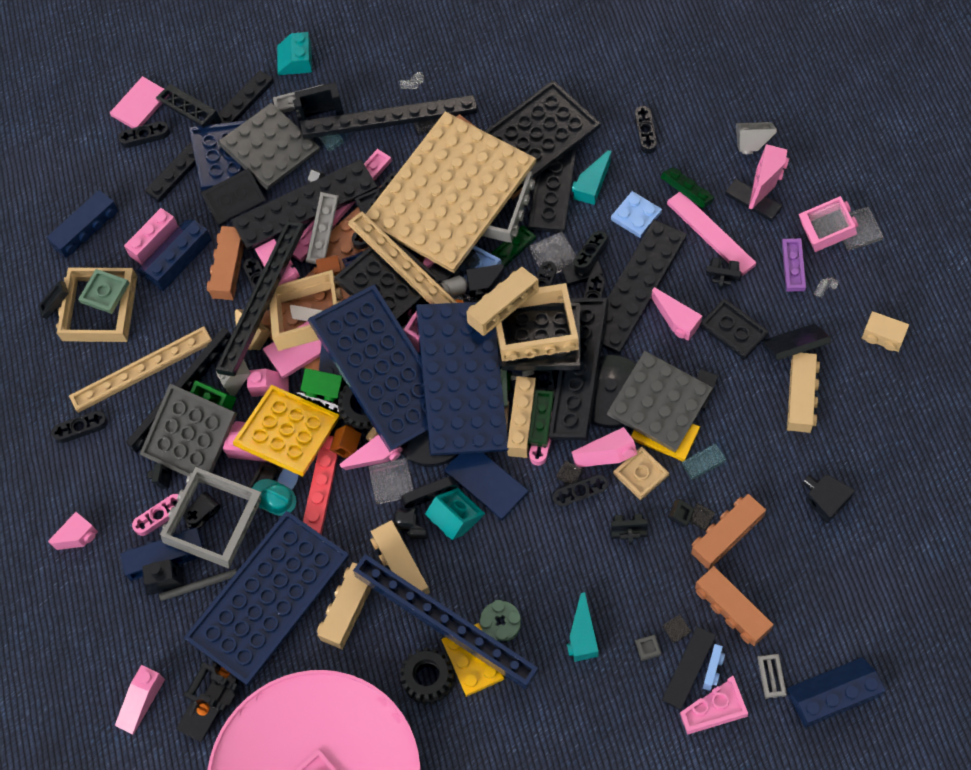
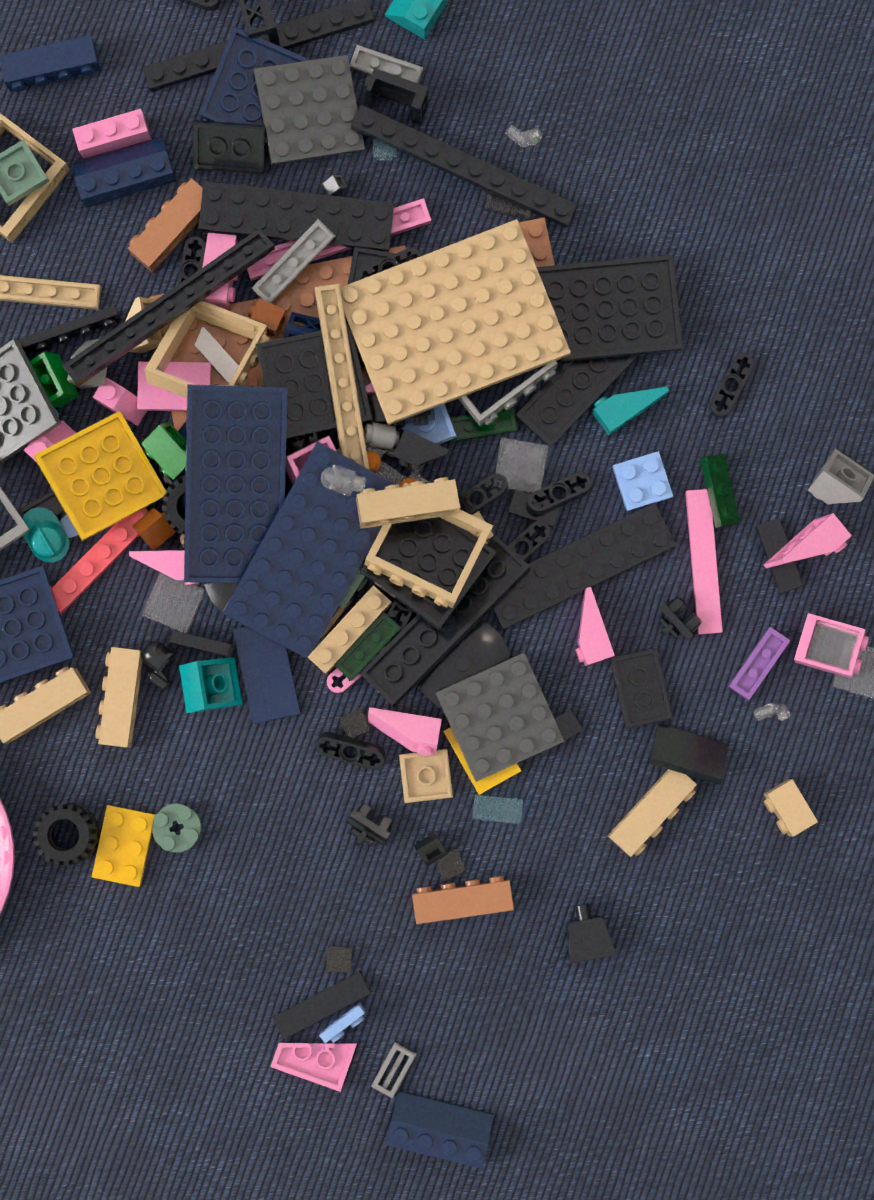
camera: 30 degrees right, 20 degrees up
(445, 622) = (114, 799): dark blue brick -> none
(451, 310) = (342, 480): none -> clear hips
(582, 636) = (242, 902): teal slope -> none
(648, 648) = (298, 956): dark grey tile -> none
(734, 606) = (408, 979): nougat brick -> none

